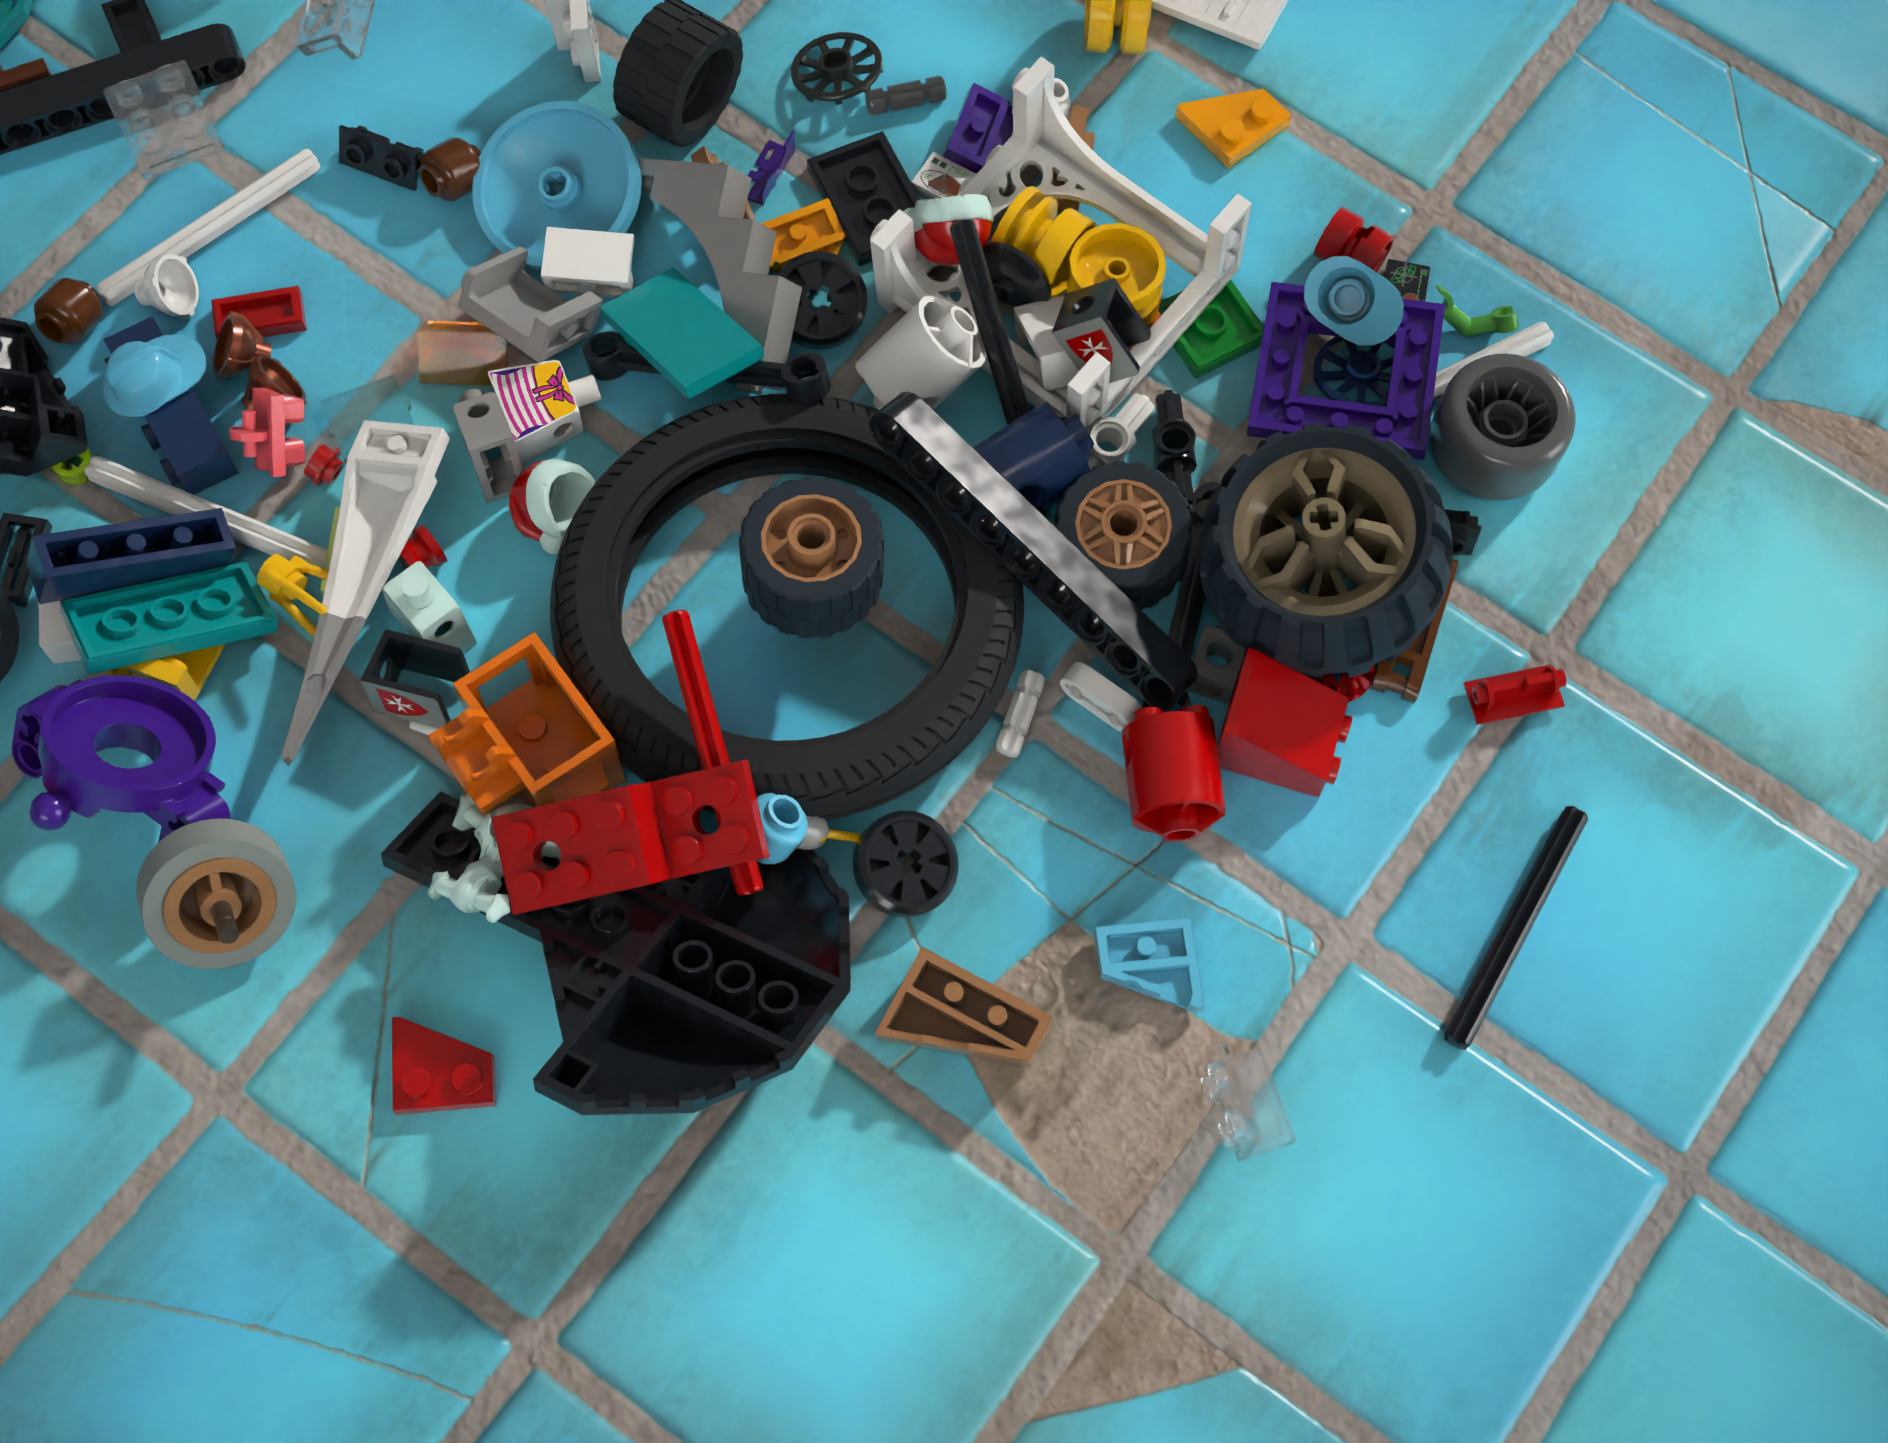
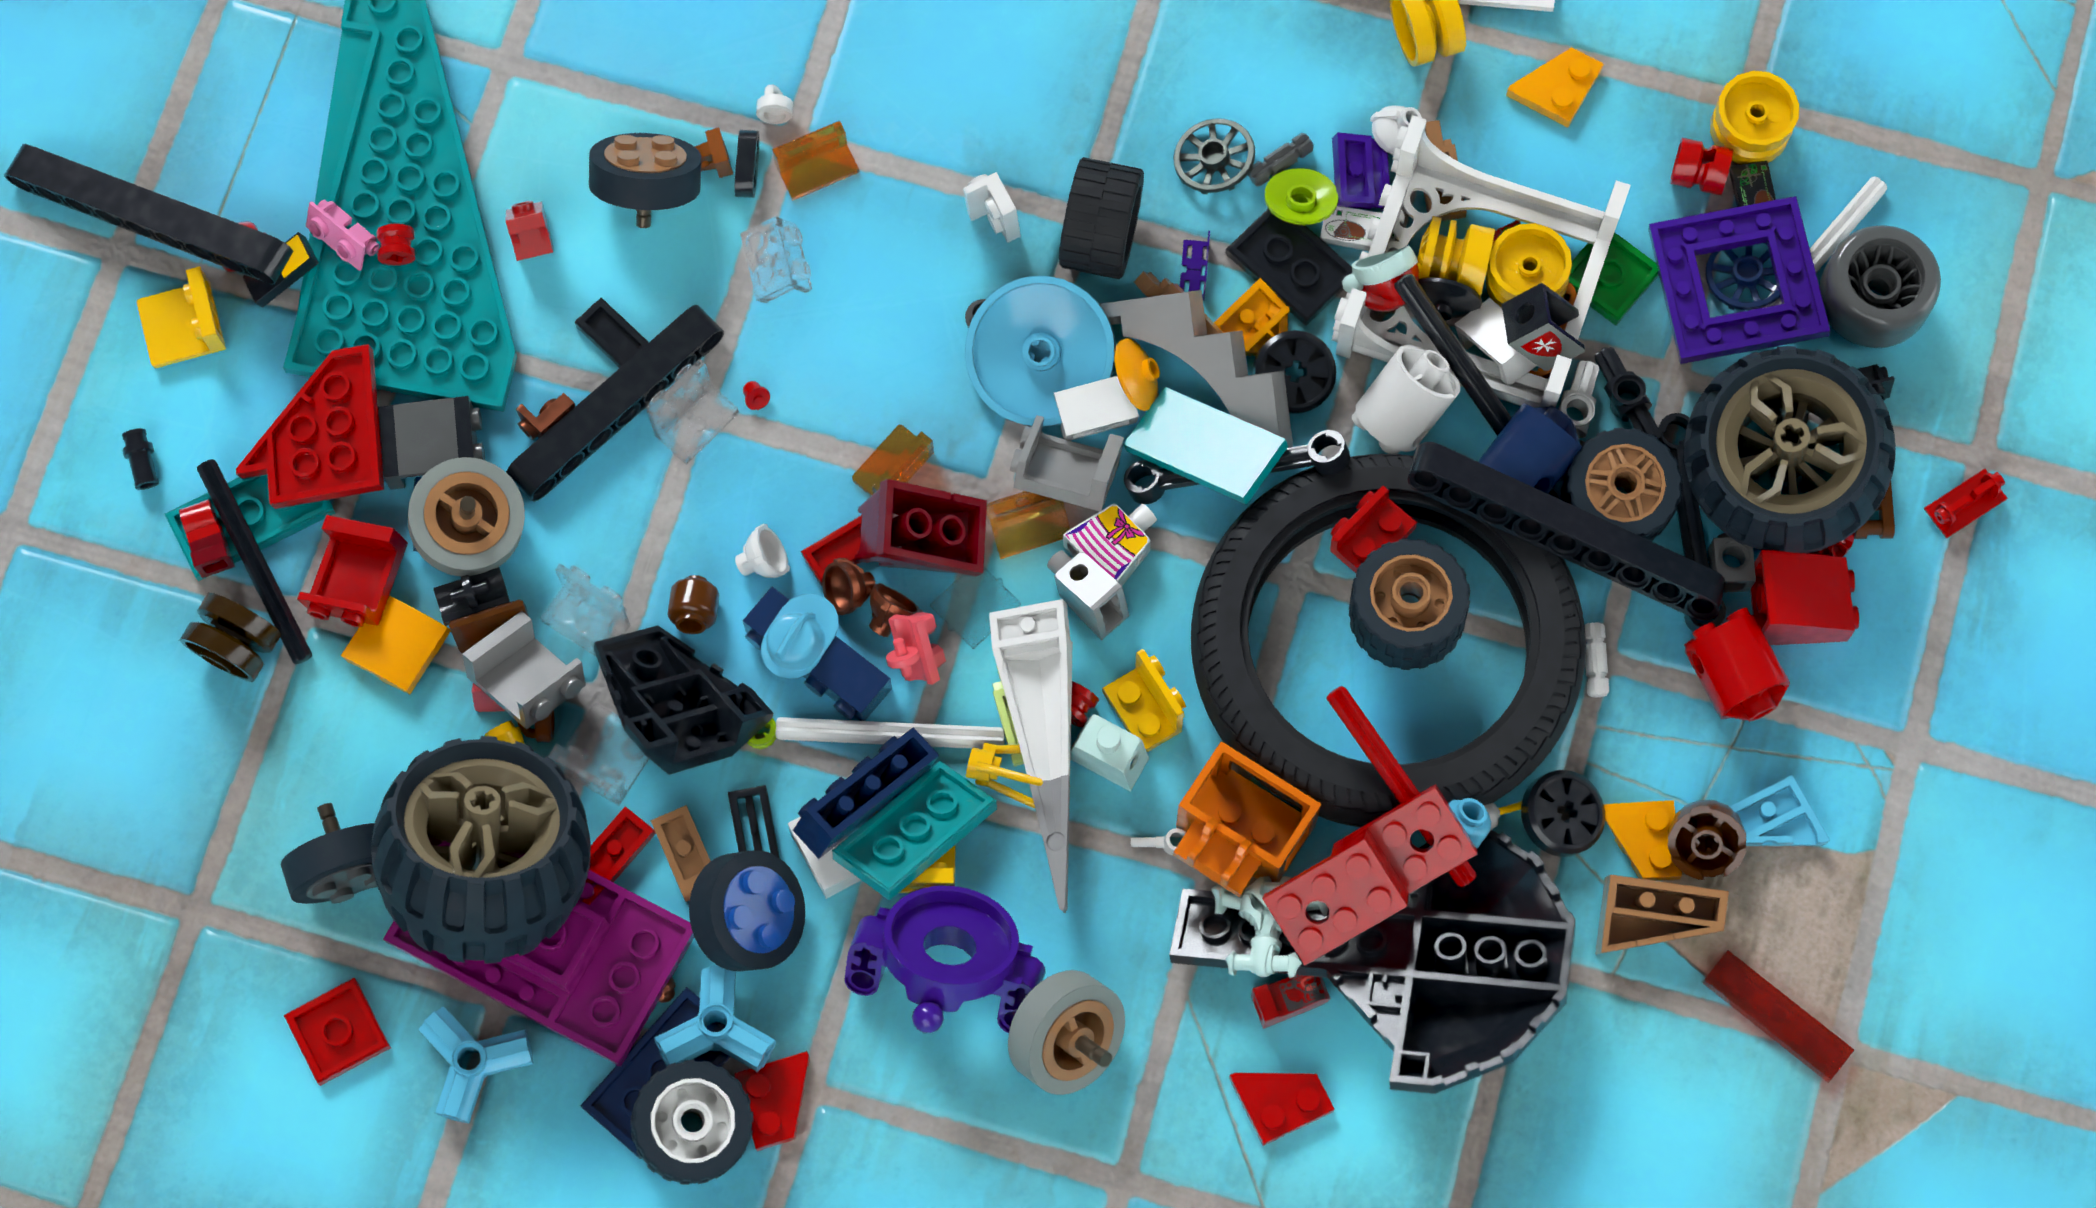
camera: 15 degrees left, 5 degrees up
(213, 223) = (765, 487): white axle -> none
(247, 137) = (755, 395): none -> red piece
(324, 465) = (963, 658): red plate -> none
(341, 314) = (923, 529): none -> dark red piece
(355, 251) = (894, 459): none -> clear orange panel
(379, 157) = (863, 374): black hinge -> none
(418, 656) = (1121, 788): black piece -> none
(449, 168) = (943, 365): reddish brown head -> none
(496, 581) = (1146, 702): none -> yellow bracket
(497, 956) = (1288, 998): none -> red leg
(547, 499) = (1161, 623): light aqua piece -> none
(645, 240) = (1136, 373): none -> light orange dish
(818, 456) = (1369, 528): none -> red bracket
(908, 133) = (1301, 196): none -> lime dish
(994, 928) = (1643, 836): none -> light orange wing
(1056, 951) = (1706, 839): none -> reddish brown cylinder
(1062, 1190) = (1778, 1016): none -> clear red plate
(1099, 695) = (1654, 624): white beam -> none
(1247, 1103) = (1888, 900): clear bracket -> none
(1353, 300) = (1729, 226): medium azure piece -> none
(1433, 214) = (1755, 117): none -> yellow wheel
(1500, 320) = (1839, 188): bright green arm -> none
(1515, 928) = (2035, 689): black axle -> none

